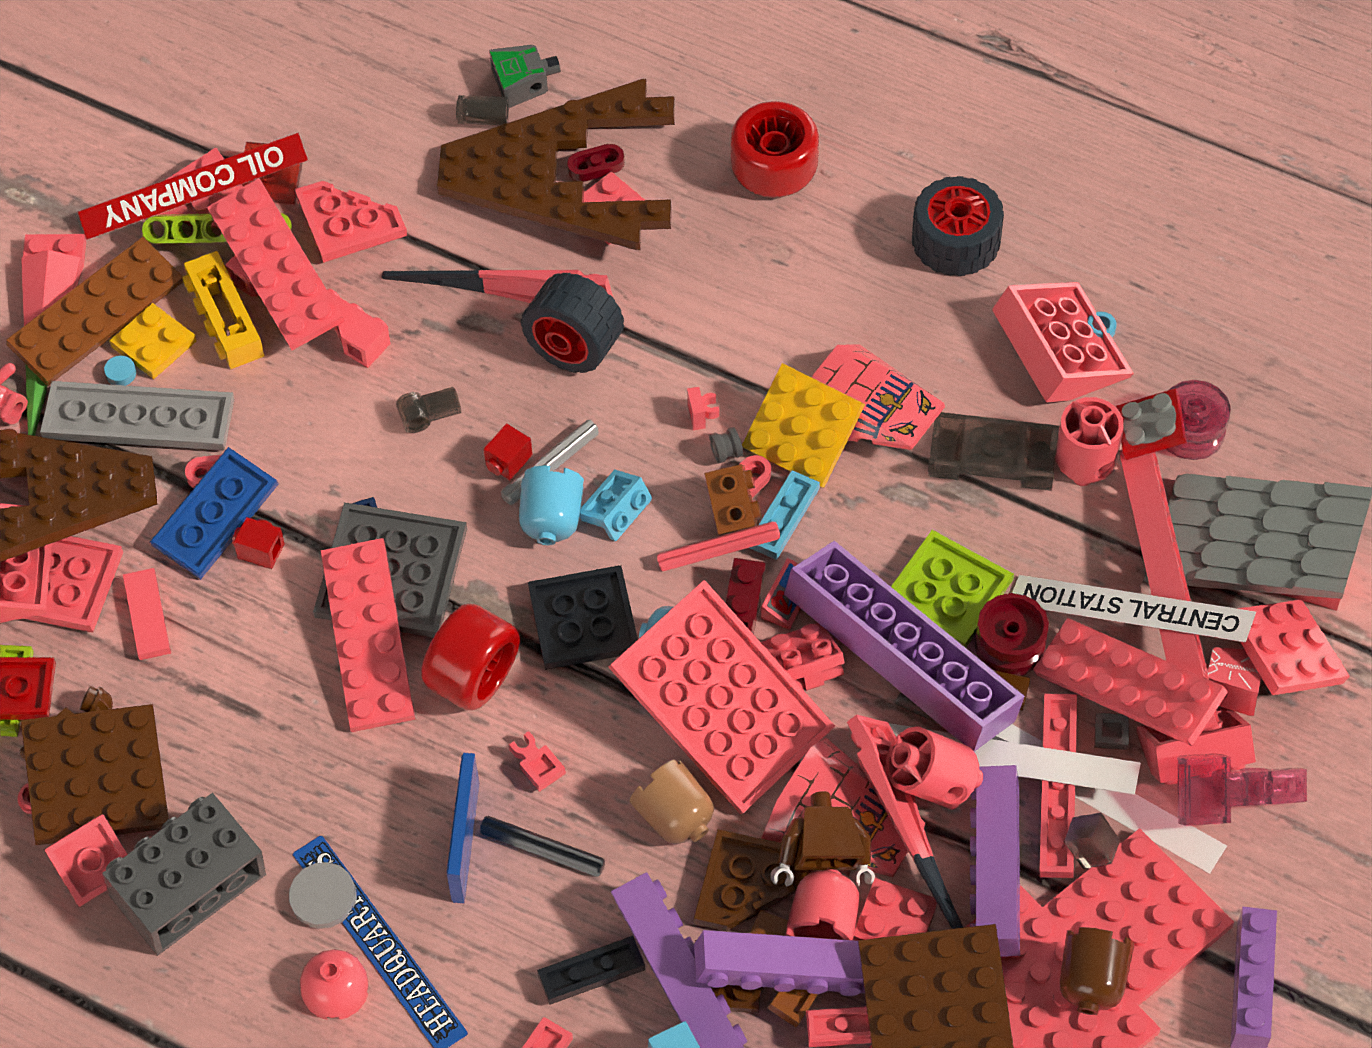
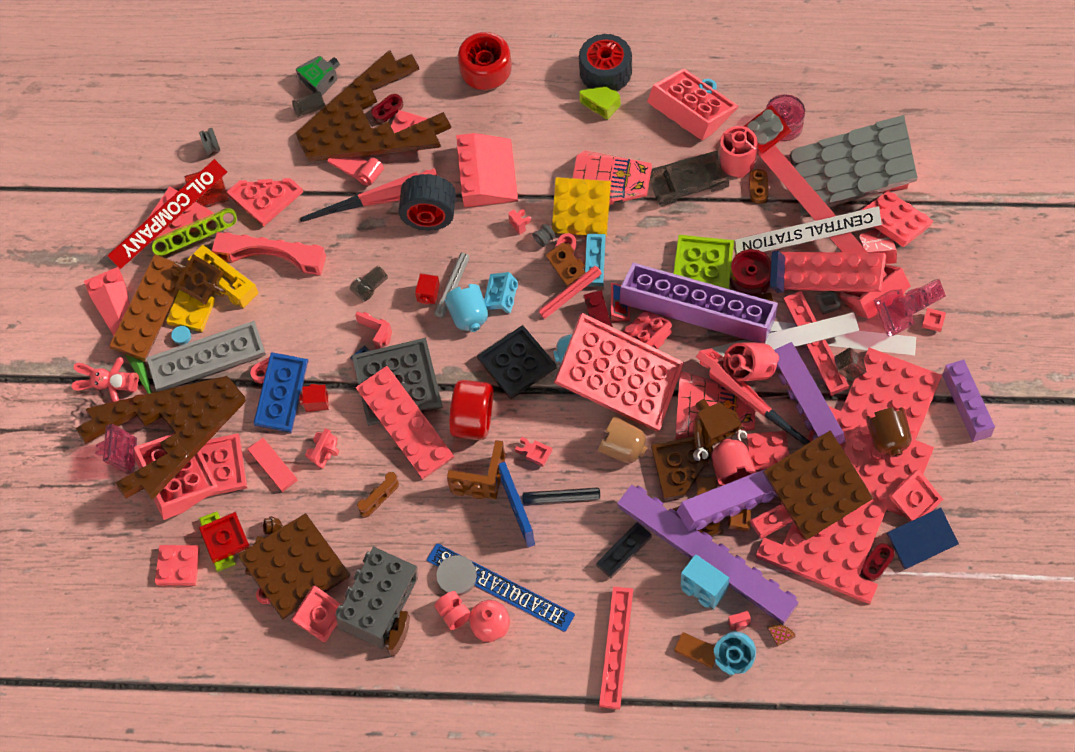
camera: 20 degrees left, 5 degrees up
(183, 298) = (199, 279): none -> reddish brown plate
(184, 948) = (397, 637): none -> reddish brown slope
(230, 622) = (324, 448): none -> coral hips
(272, 725) = (378, 495): none -> dark orange plate
(275, 264) = (242, 238): coral plate -> none
(286, 943) = (450, 607): none -> coral wheel
(310, 106) = (209, 141): none -> dark grey wheel
(410, 490) = (384, 330): none -> coral bracket
(431, 779) = (479, 485): none -> dark orange bracket
(506, 234) = (364, 171): none -> coral door
(691, 312) = (486, 170): none -> coral slope
(923, 280) = (601, 101): none -> lime slope
(1050, 648) = (777, 271): none -> dark blue tile
(1100, 506) = (758, 184): none -> dark orange plate
(1267, 830) = (934, 320): none -> coral plate

